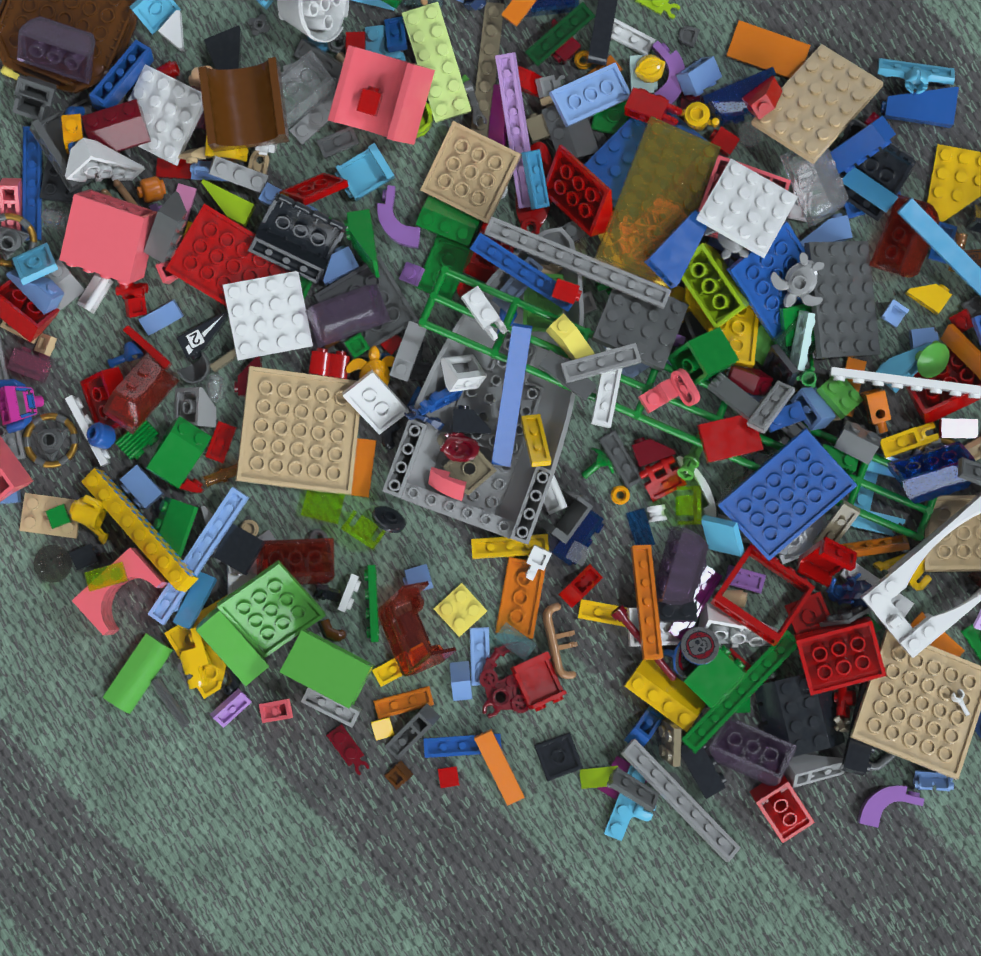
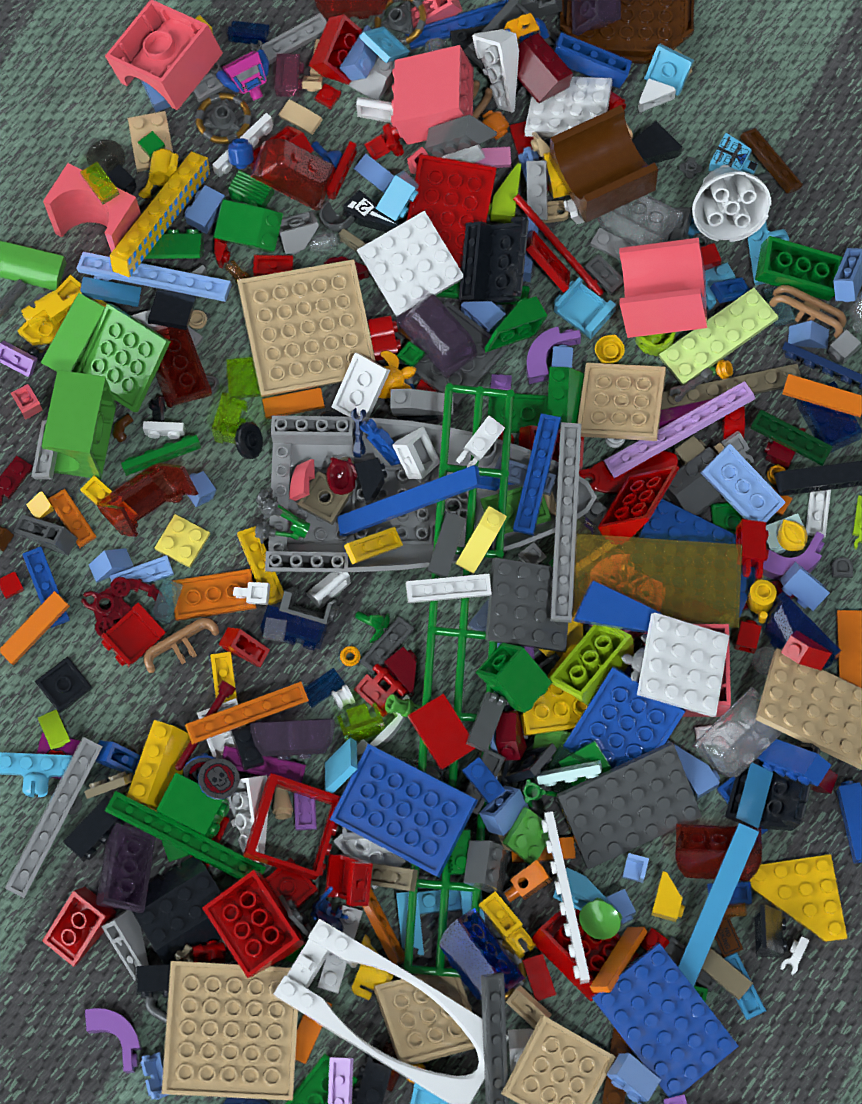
camera: 70 degrees right, 15 degrees down
(63, 334) = (328, 96): none -> red plate
(77, 367) = (301, 117): none -> tan slope
(198, 303) = (398, 195): none -> medium azure slope
(341, 157) = (592, 284): none -> red bar
(370, 101) = (652, 279): red brick -> none
(408, 210) = (562, 356): none -> medium blue brick
(413, 164) = (609, 349): none -> yellow hat
(468, 68) = (724, 369): none -> light orange plate
(474, 519) = (270, 507): none -> dark grey plant
(535, 179) = (637, 462): dark azure tile -> none
(566, 291) = (531, 516): red brick -> none
(600, 363) = (470, 570): light grey plate -> none
(633, 789) = (49, 762): dark grey hinge -> none
(658, 396) = (460, 645): coral slope -> none
(685, 387) = (481, 660): coral plate -> none
(770, 407) = (487, 760): light grey tile -> none
(799, 282) = (629, 747): light grey animal -> none
(960, 701) = (246, 1071): white hand -> none

